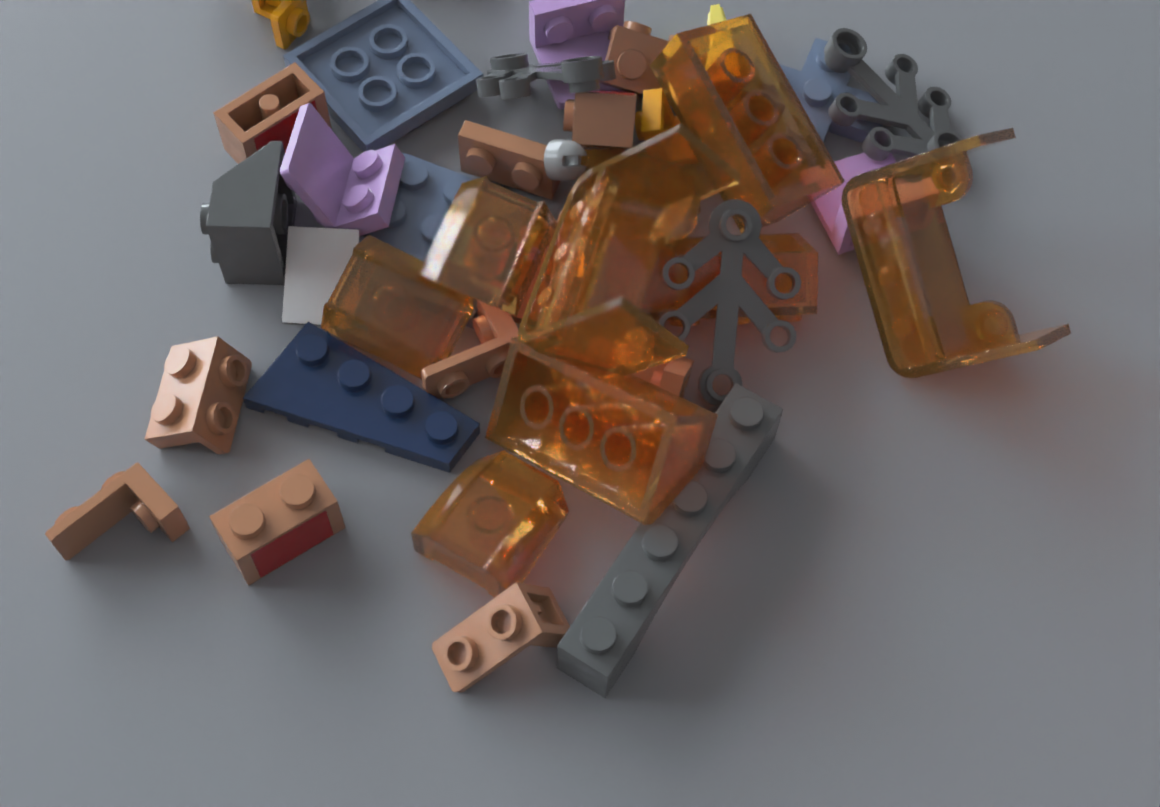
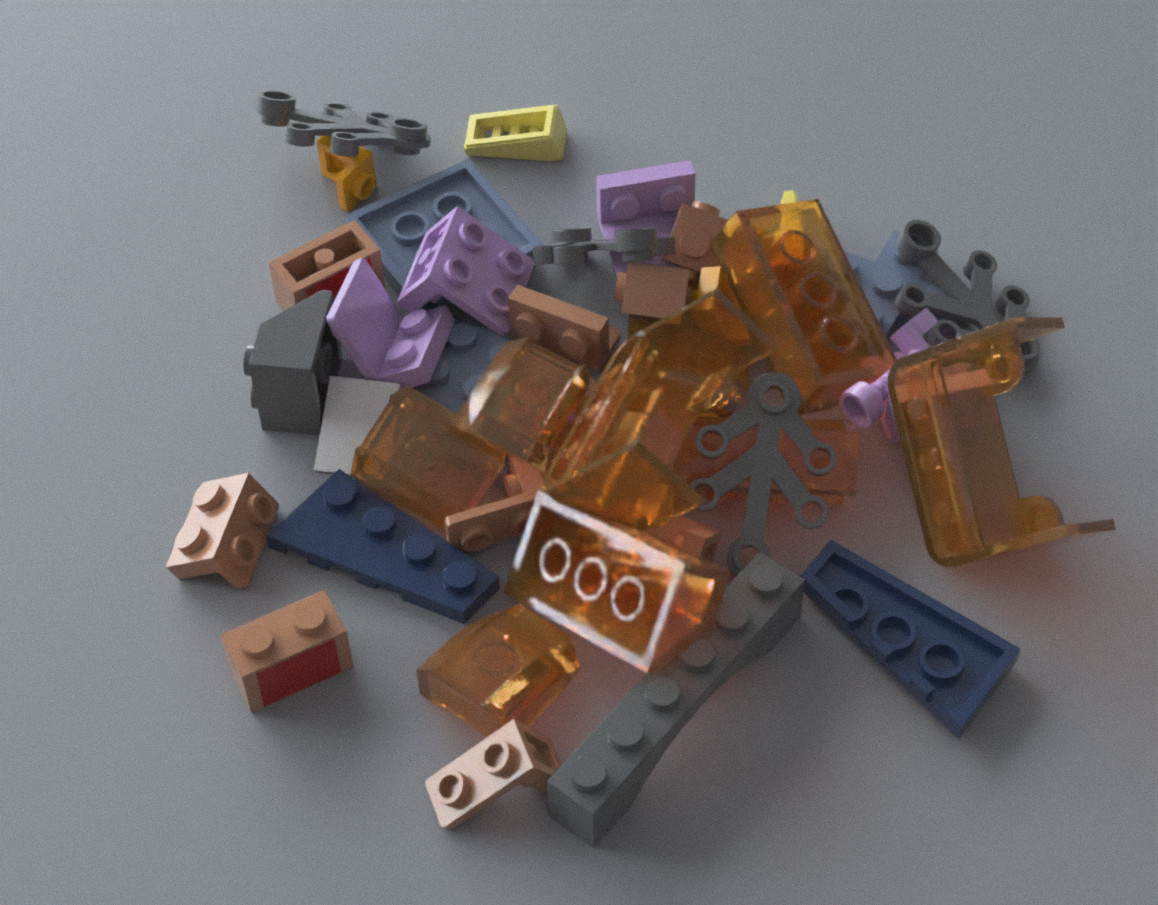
camera: 10 degrees right, 10 degrees down
(119, 495) = (138, 615): nougat bracket -> none
(412, 103) = (467, 267): none -> lavender bracket
(563, 160) = (610, 327): light grey hinge -> none
(815, 217) = (865, 402): none -> lavender bar
(893, 457) = (919, 641): none -> dark blue wing

